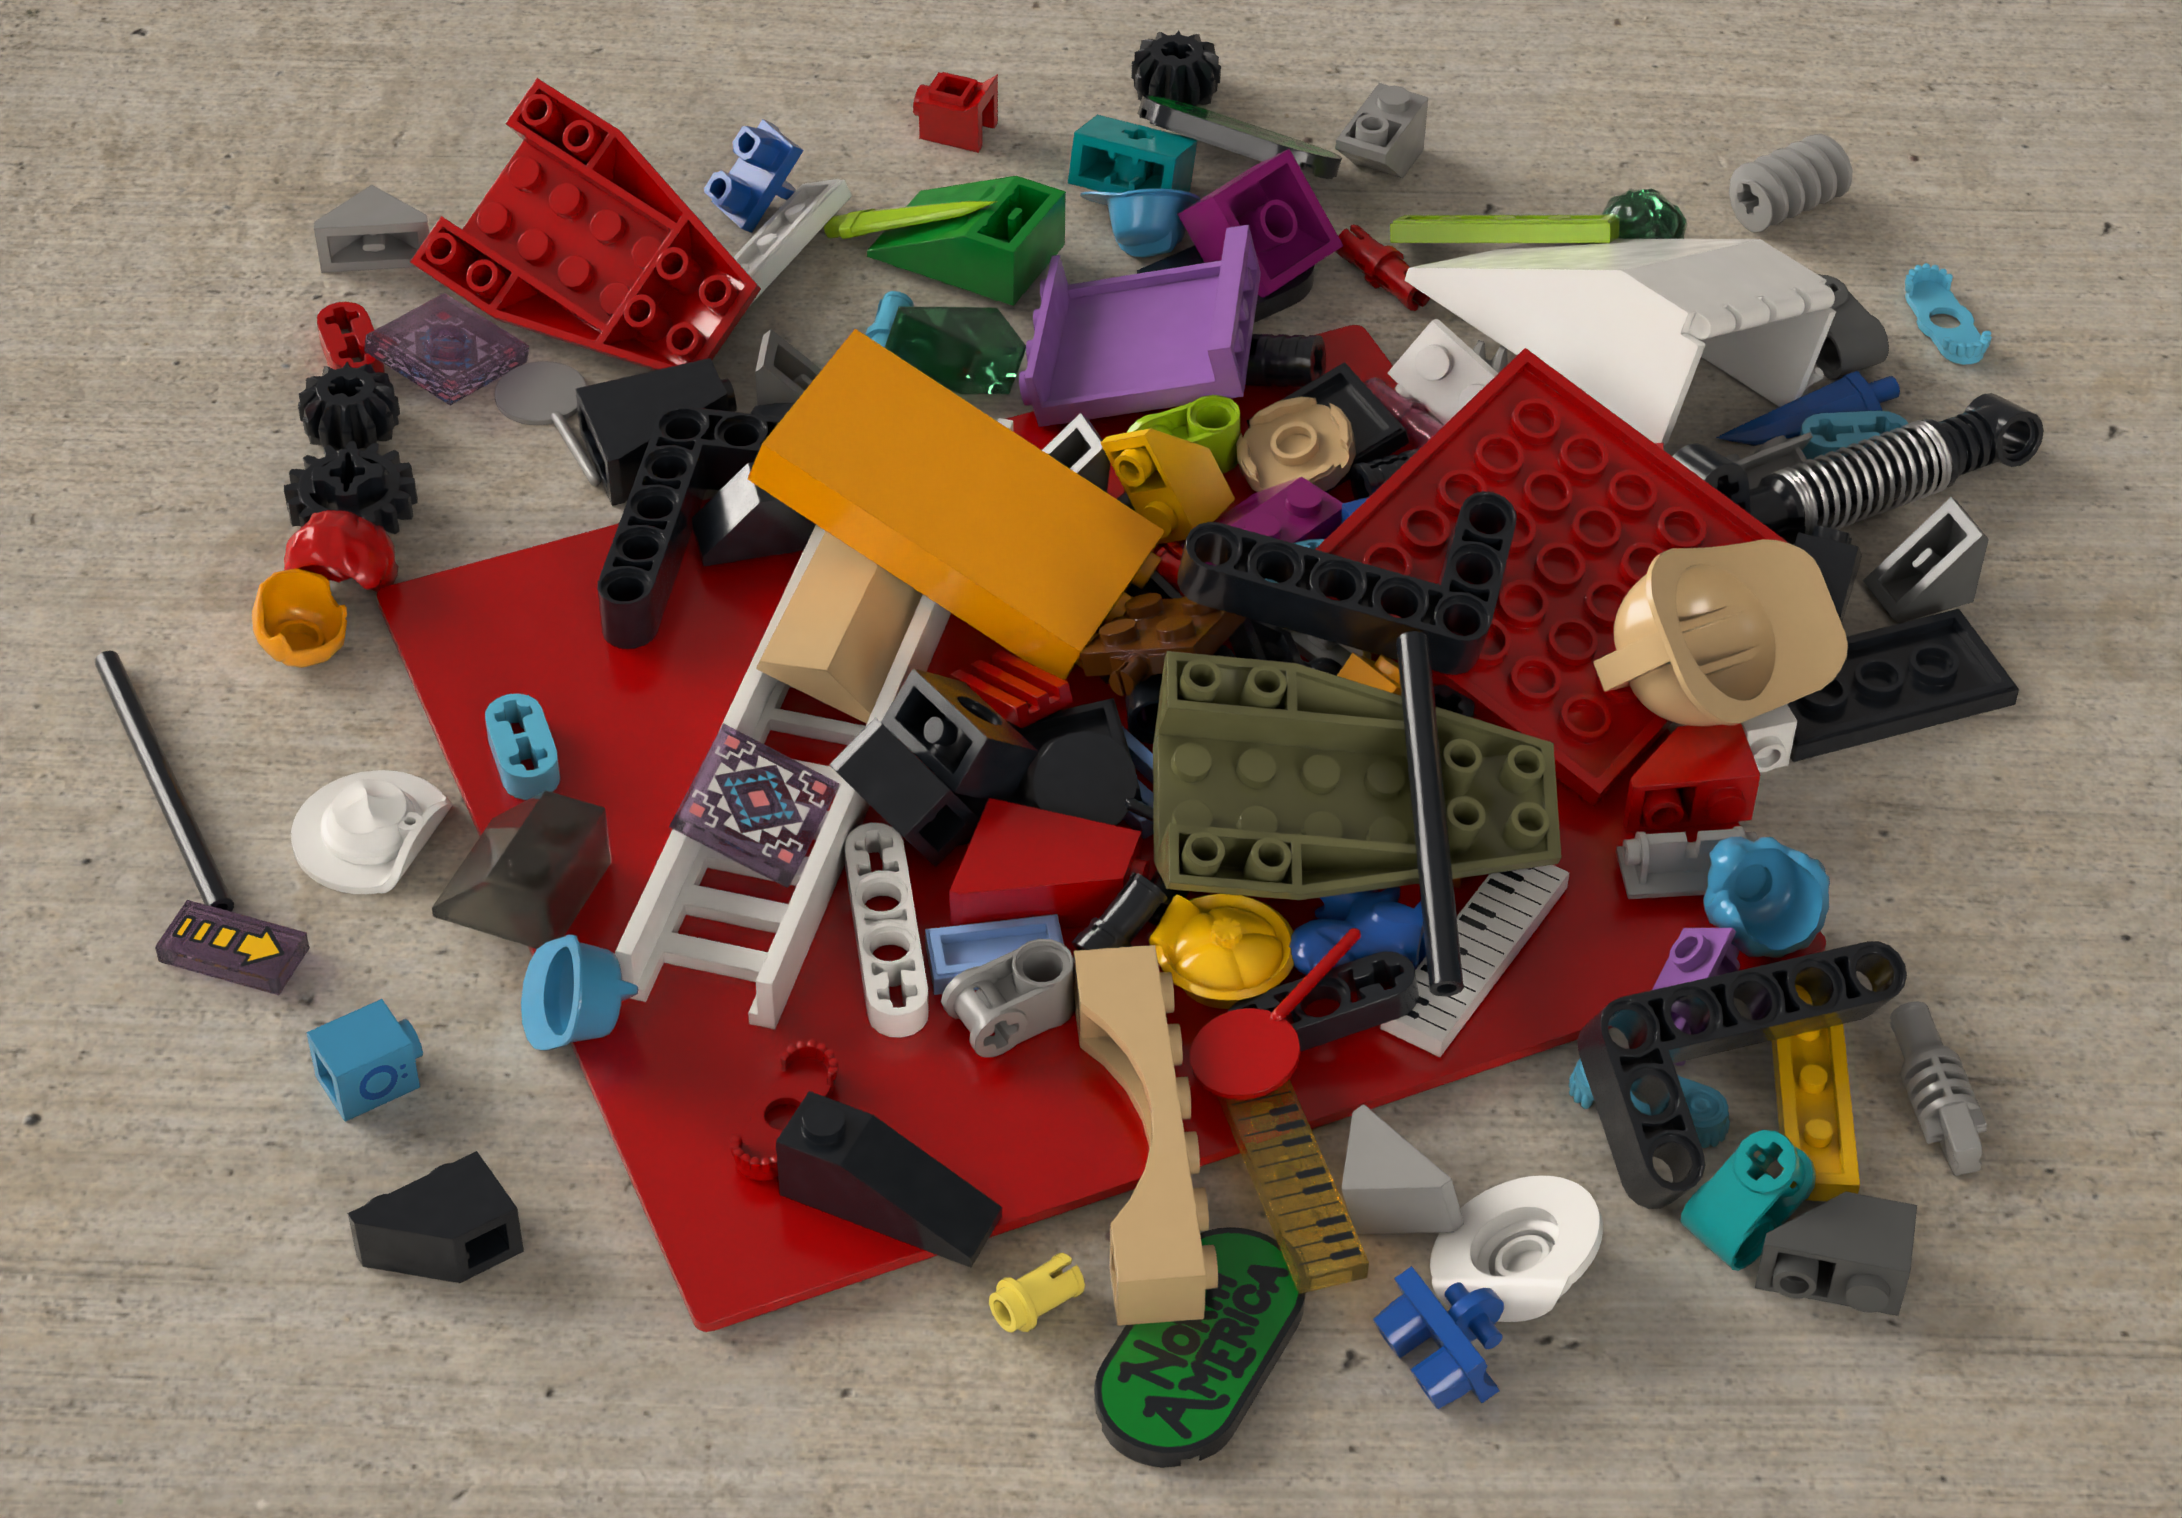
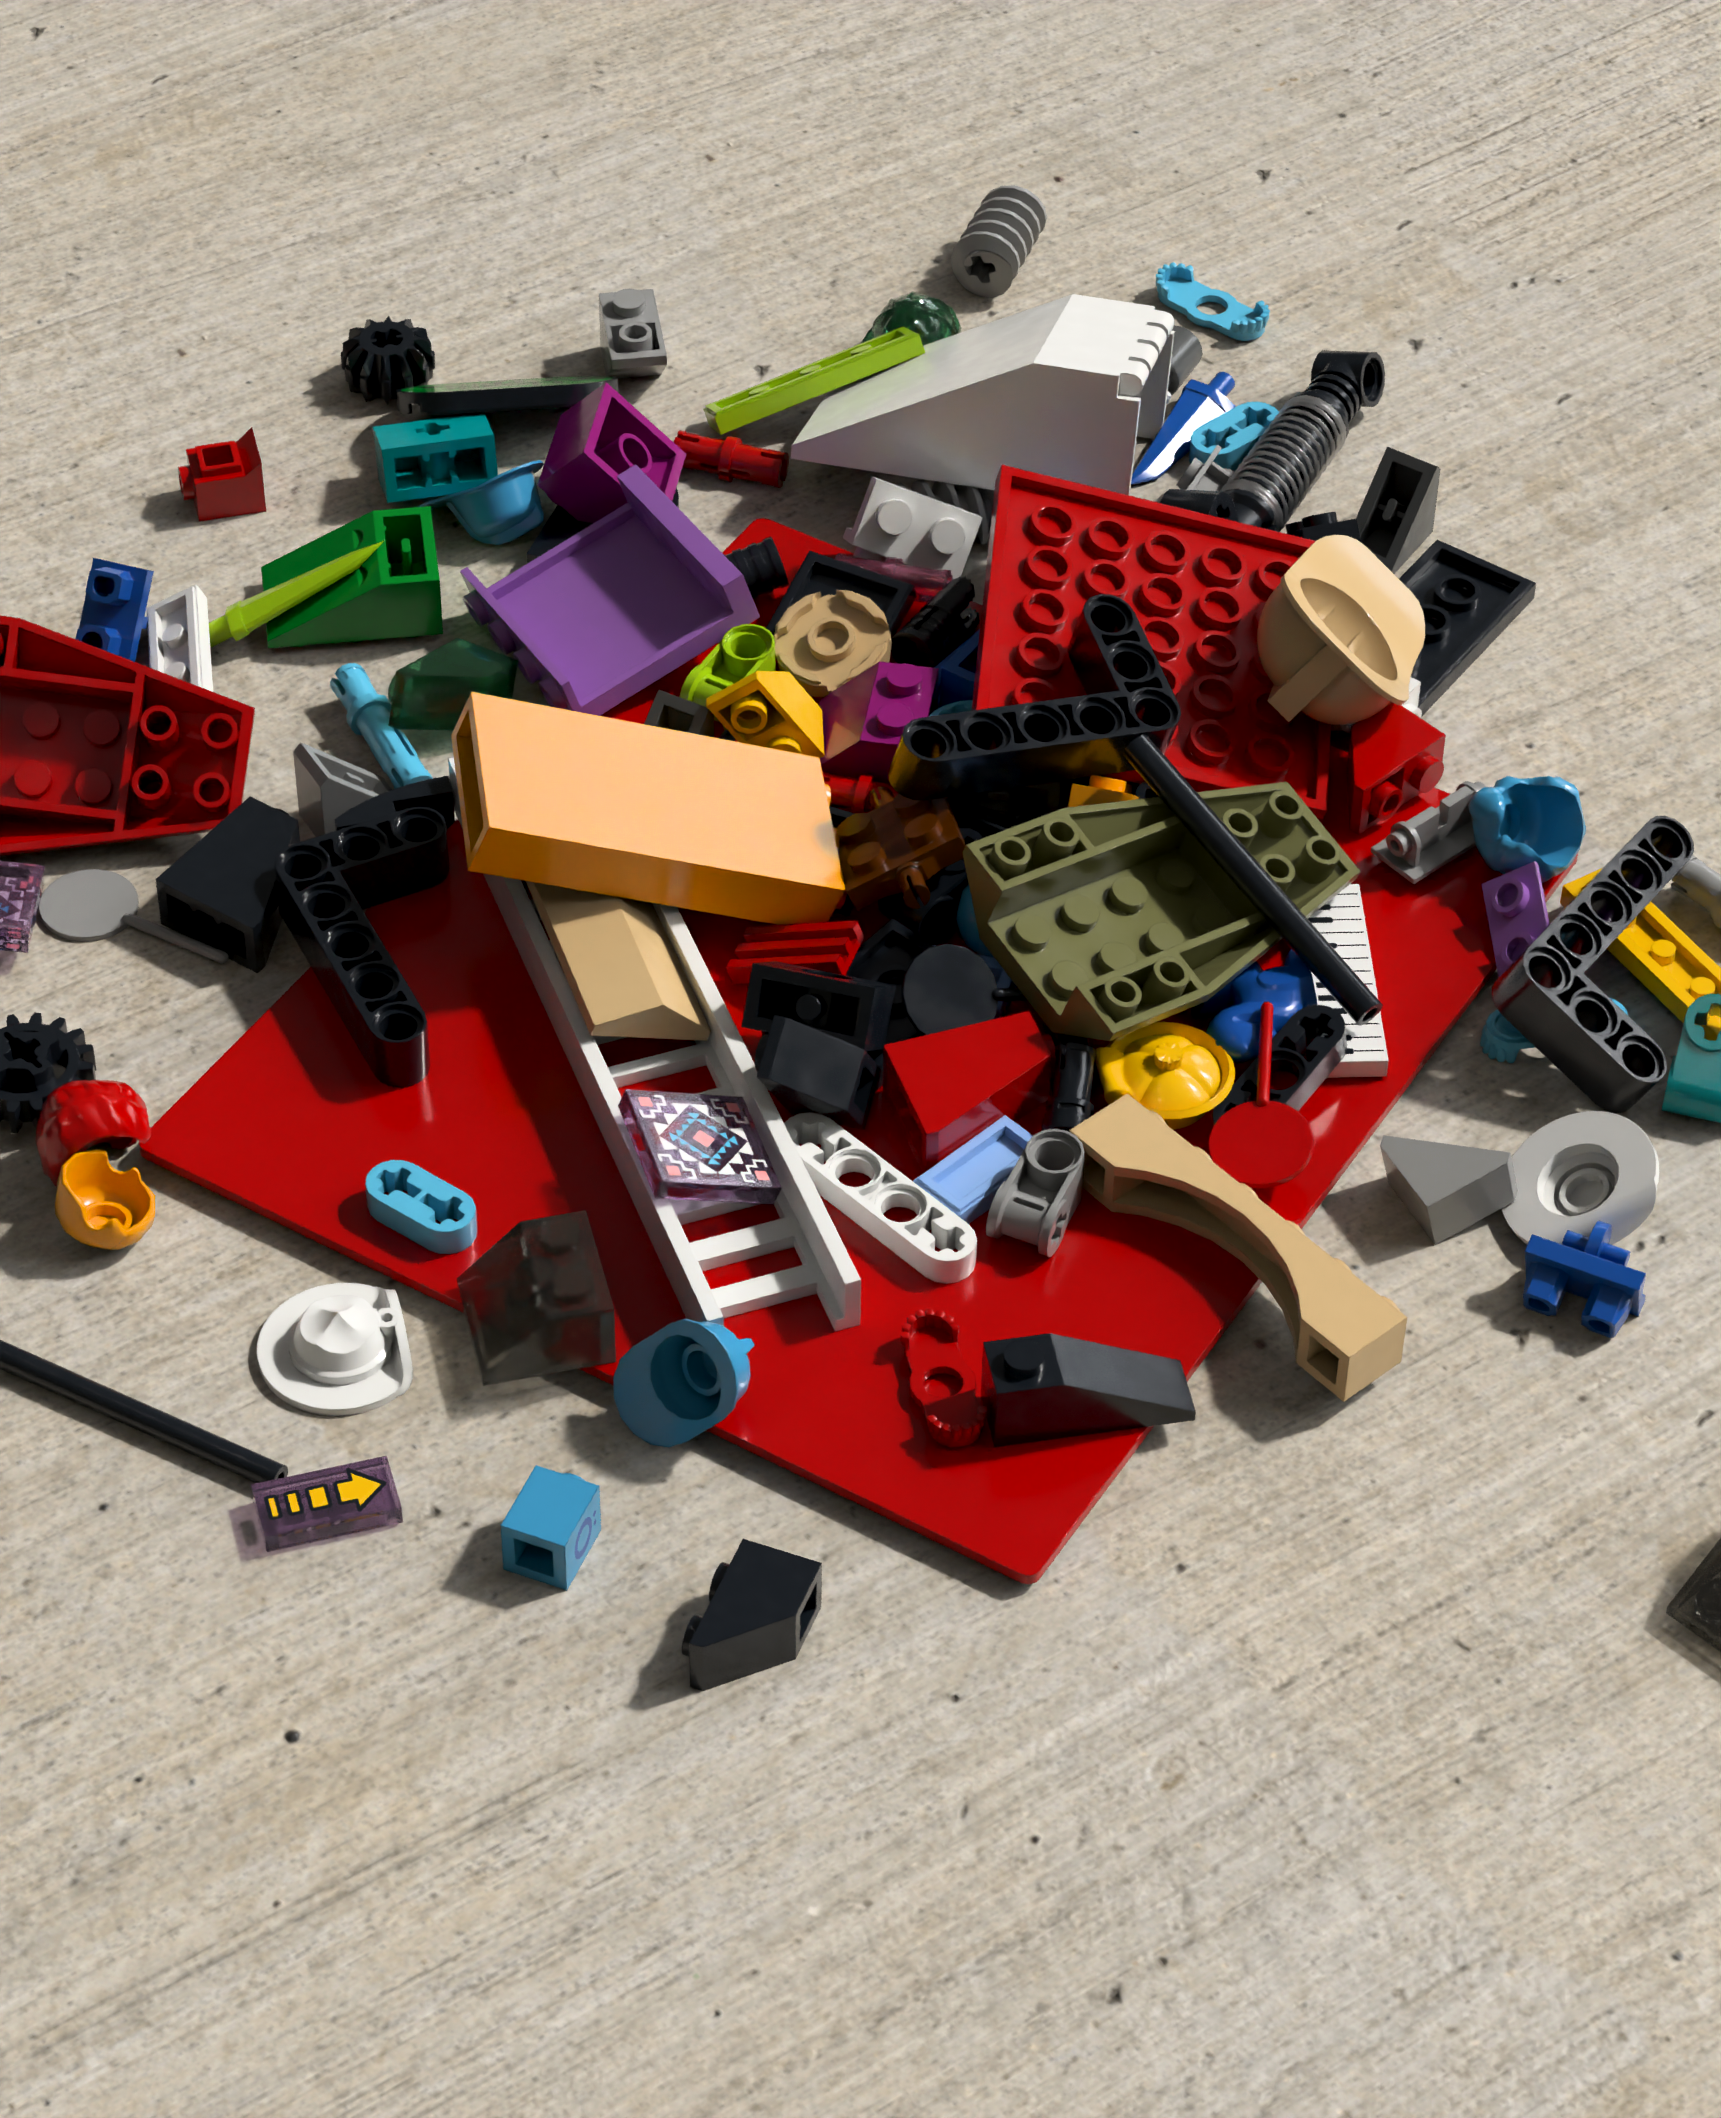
camera: 35 degrees left, 0 degrees up
(747, 524) = (440, 909): black slope -> none
(1023, 1300) = (1256, 1423): light yellow pin -> none
(1189, 1383) = (1429, 1413): tile -> none
(1296, 1190) = (1382, 1228): clear yellow tile -> none

